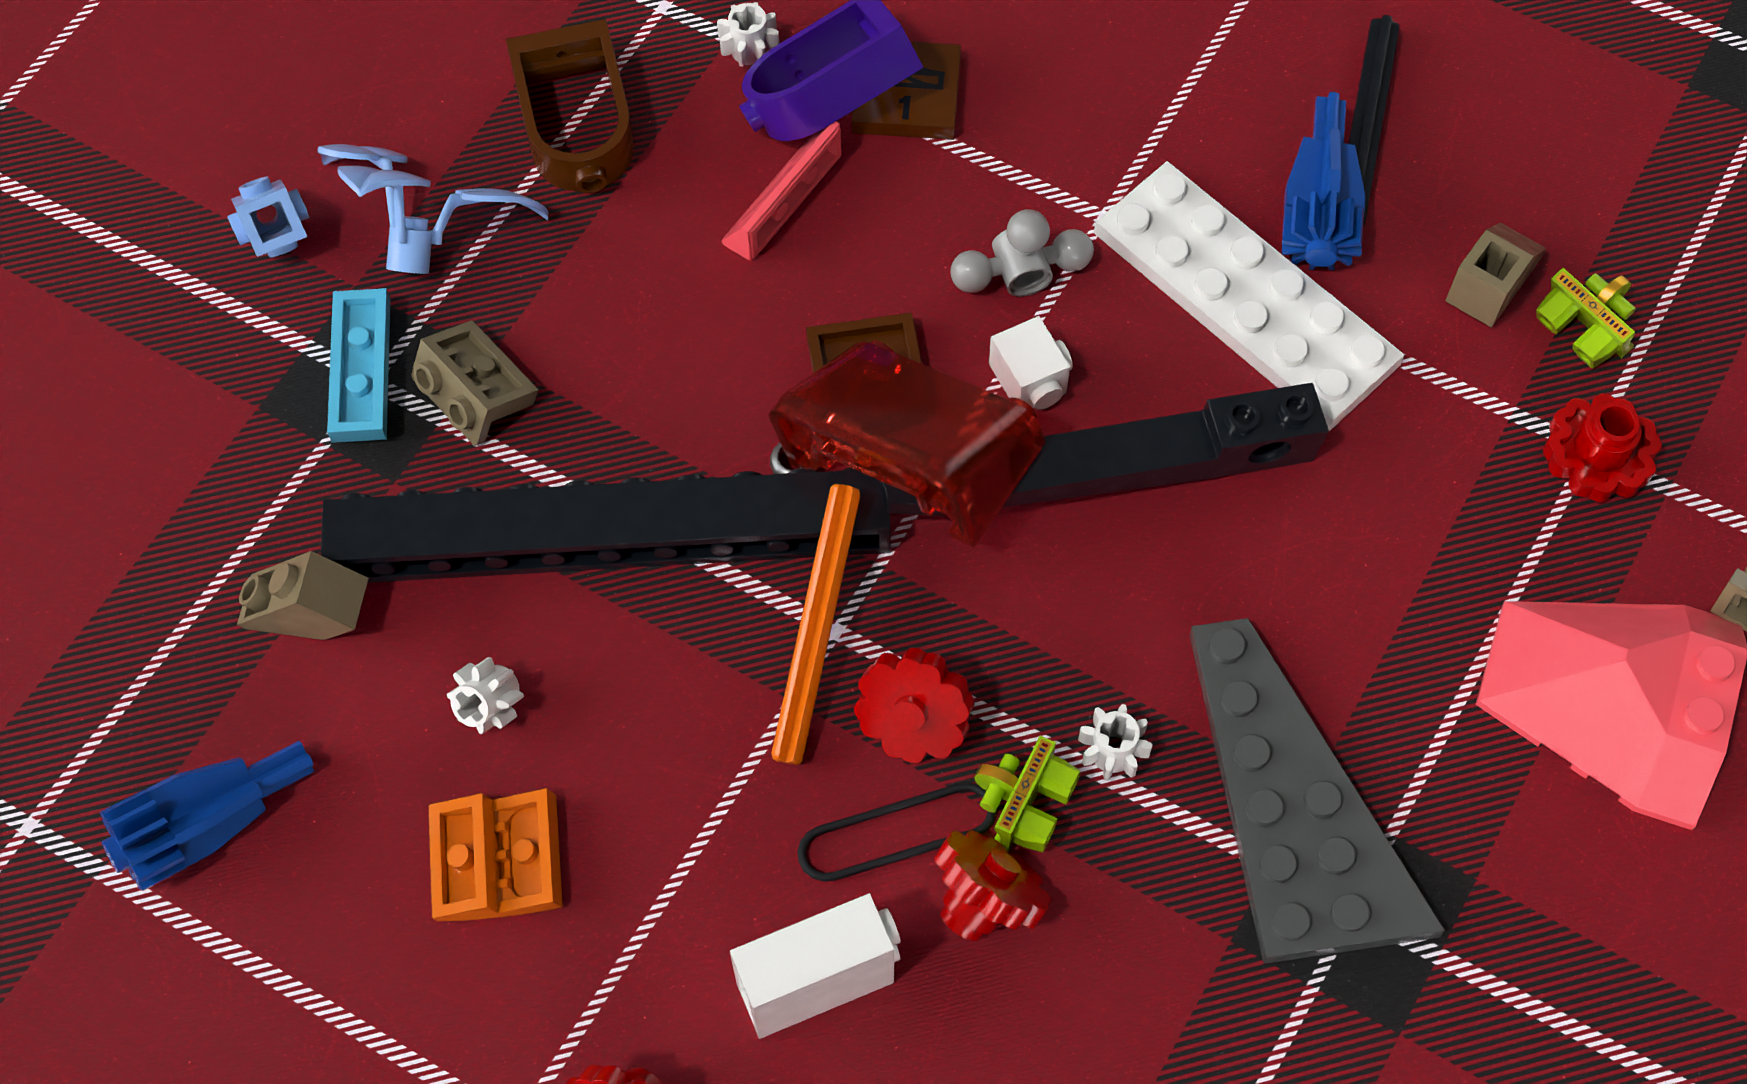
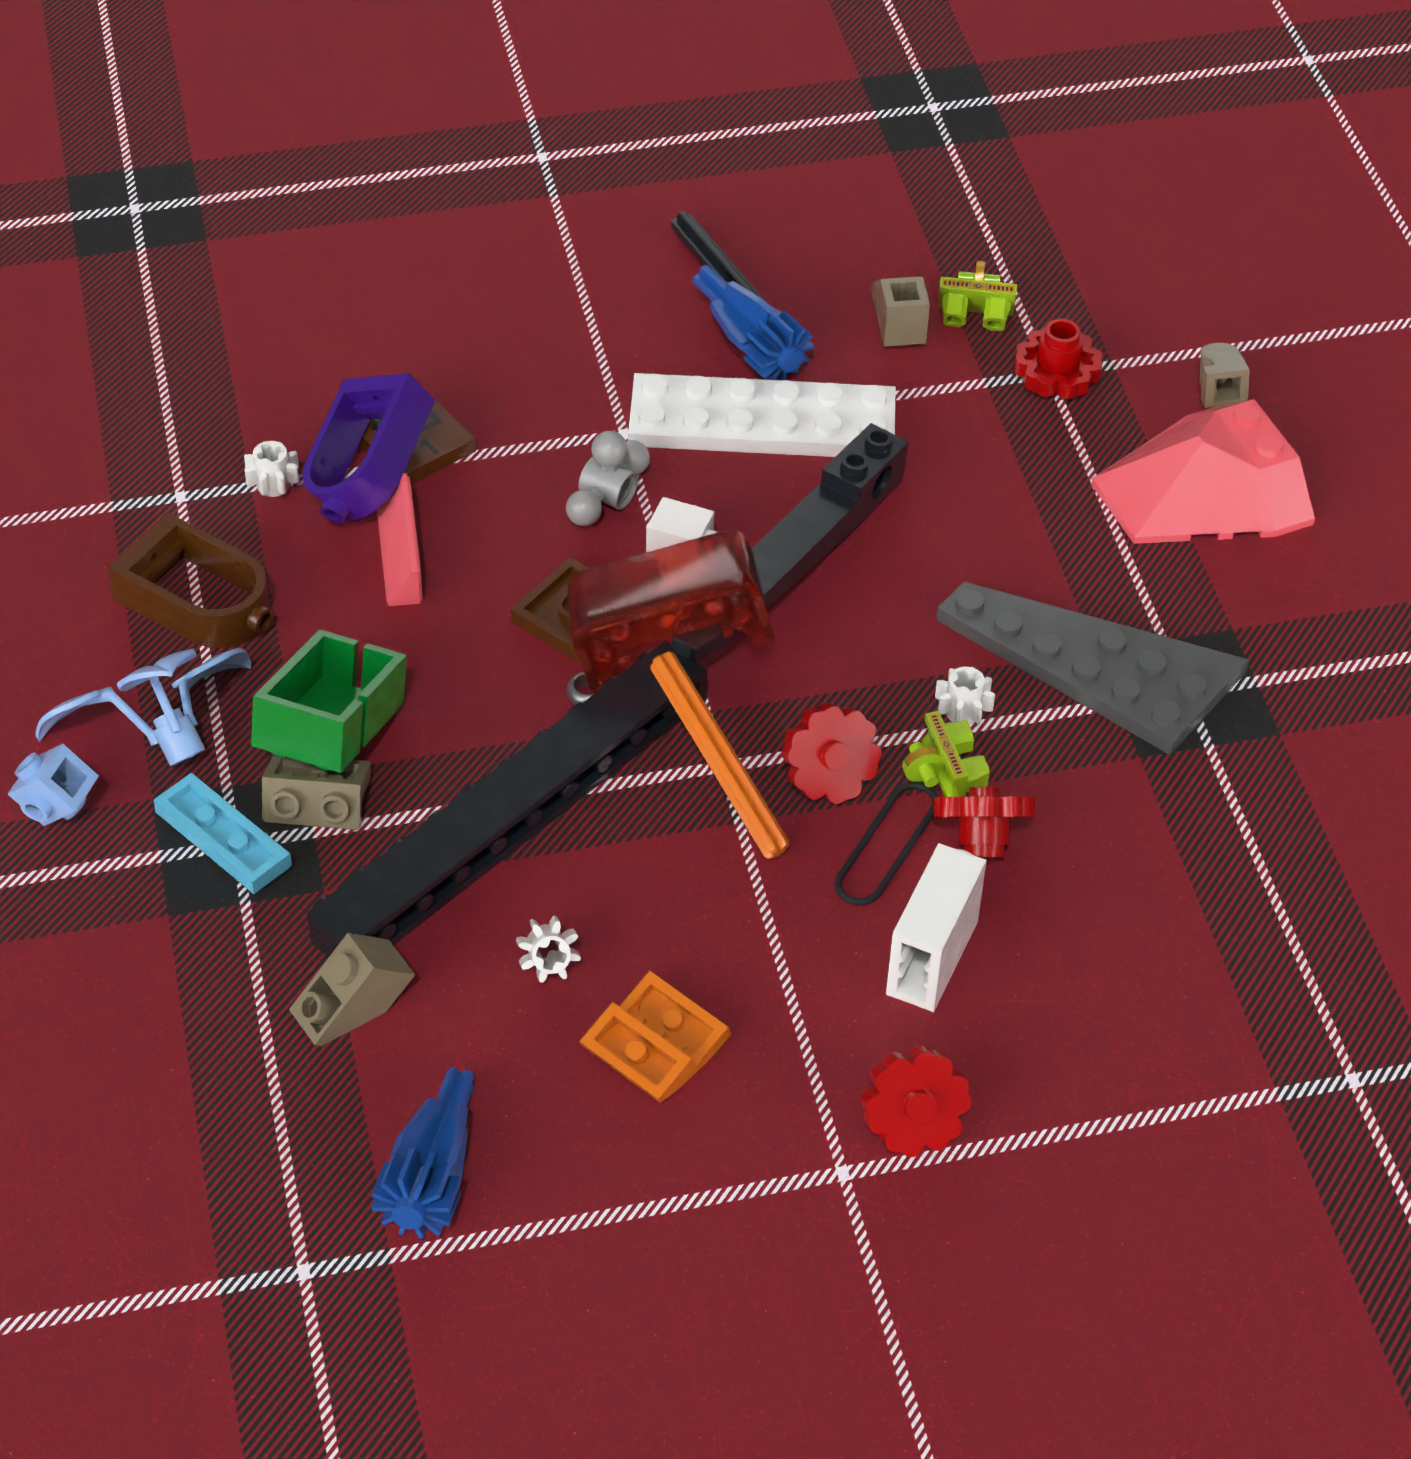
camera: 45 degrees left, 15 degrees down
(539, 306) = (317, 711): none -> green piece

